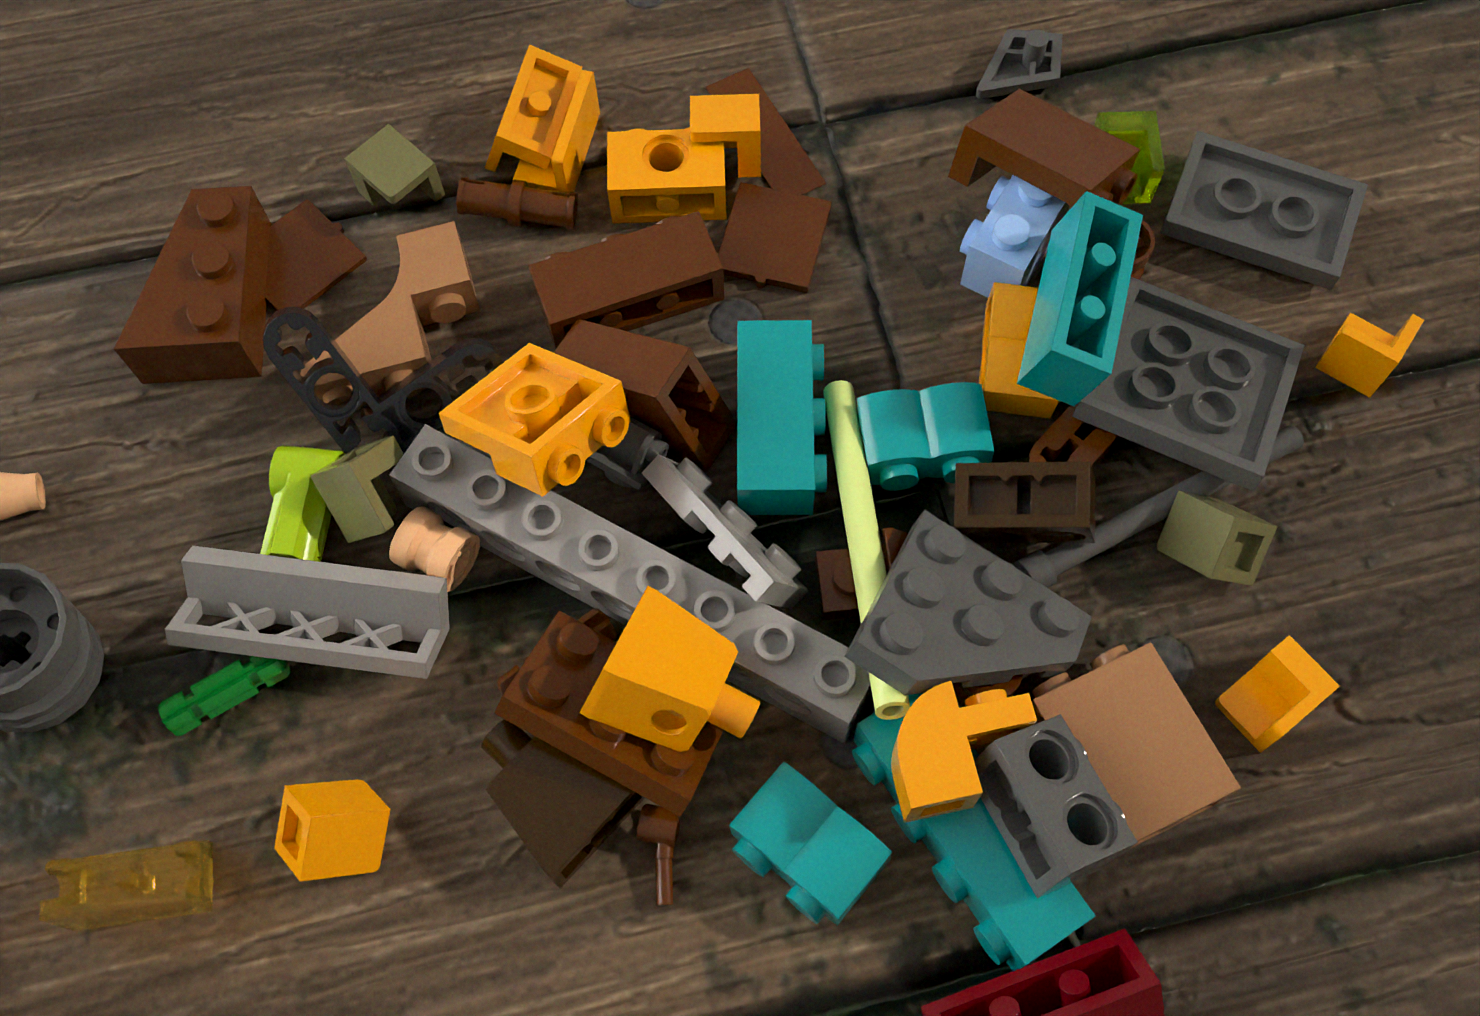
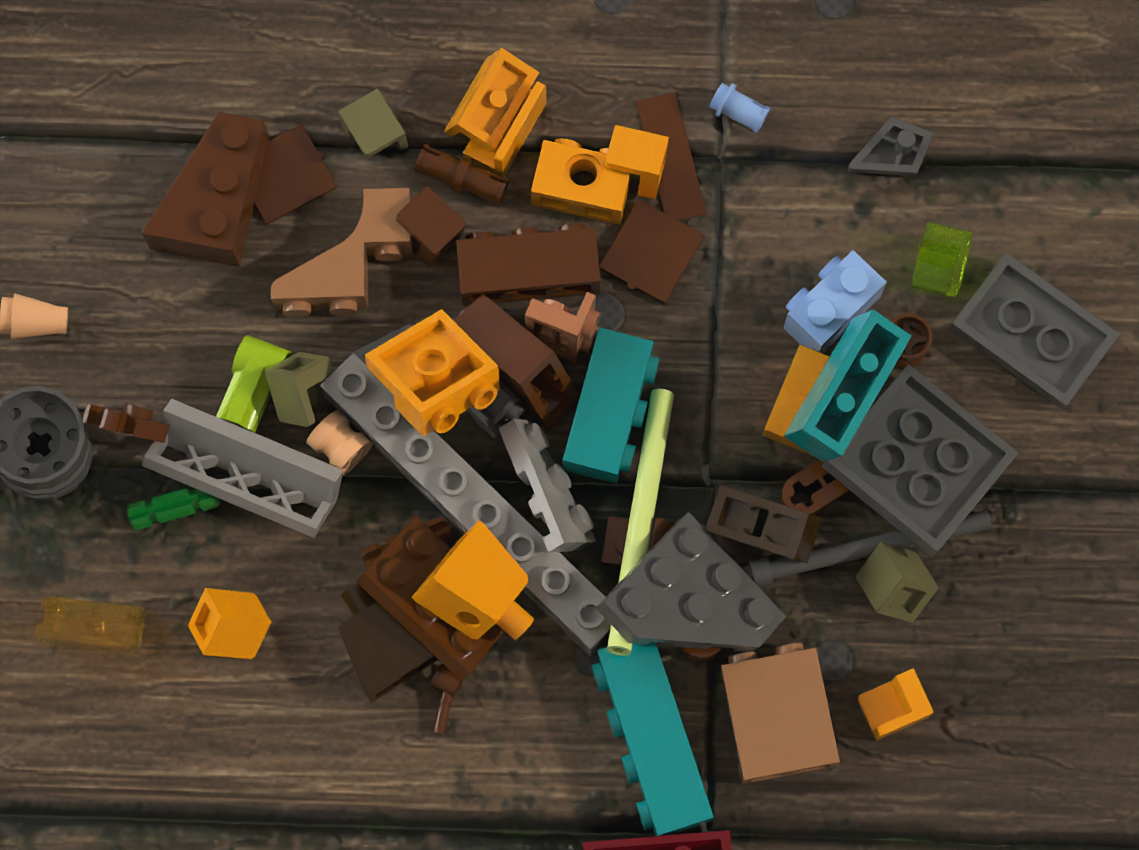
camera: 15 degrees right, 10 degrees up
(140, 585) = (132, 421): none -> reddish brown plate
(385, 410) = (327, 328): black beam -> none
(496, 257) = (431, 224): none -> reddish brown panel
(695, 322) = (560, 329): none -> nougat bracket
(809, 845) = (543, 720): teal brick -> none
(828, 59) = (739, 107): none -> light blue pin
(923, 433) = (712, 449): teal brick -> none
(935, 742) = (639, 678): light orange brick -> none
(1042, 791) = (692, 739): dark grey brick -> none
(1045, 150) = (875, 250): reddish brown panel -> none
(1365, 354) = (1064, 468): light orange panel -> none

